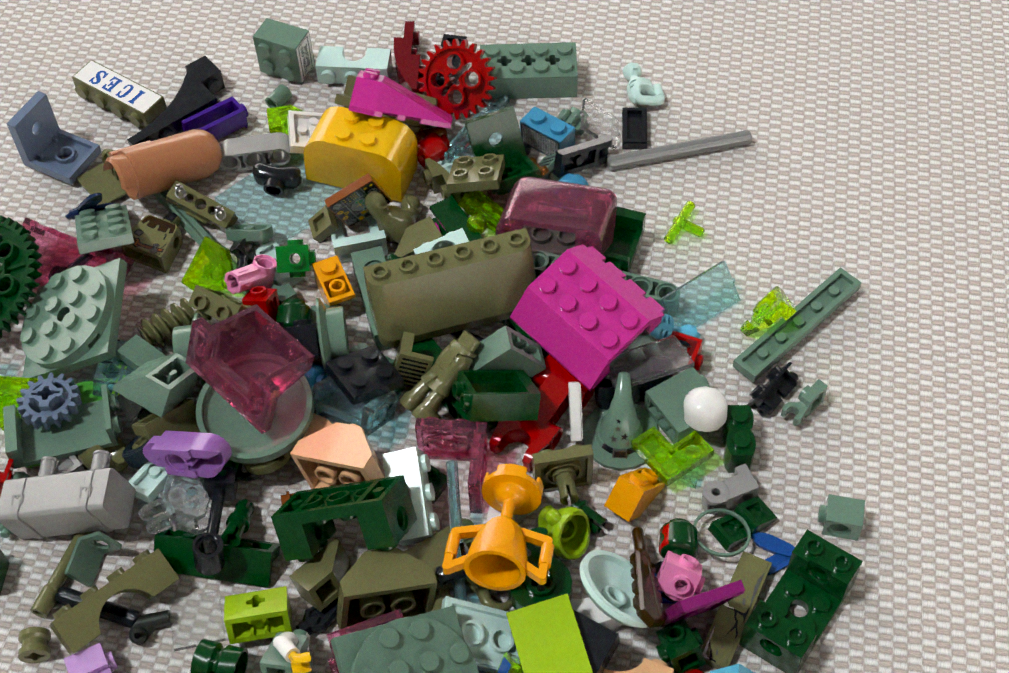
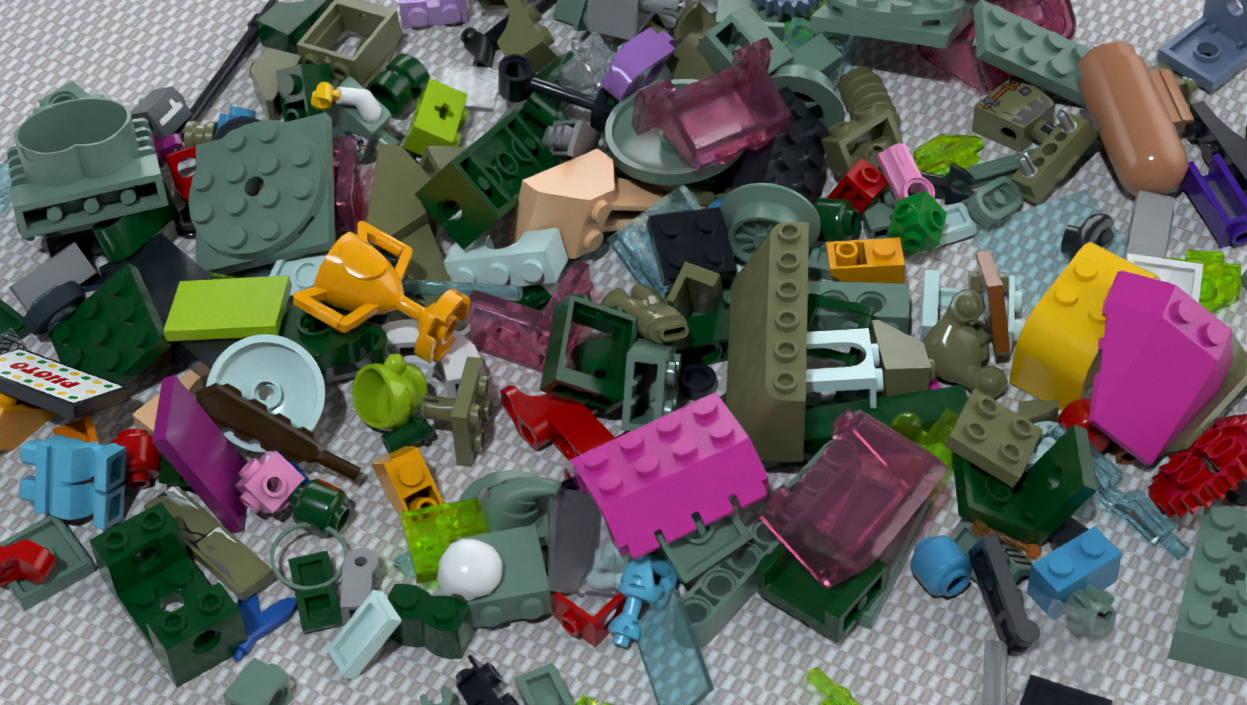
camera: 110 degrees right, 5 degrees down
(277, 482) = (570, 139): none -> light grey slope
(575, 411) = (544, 443): white tile -> none
(771, 466) = (364, 634): none -> light aqua tile

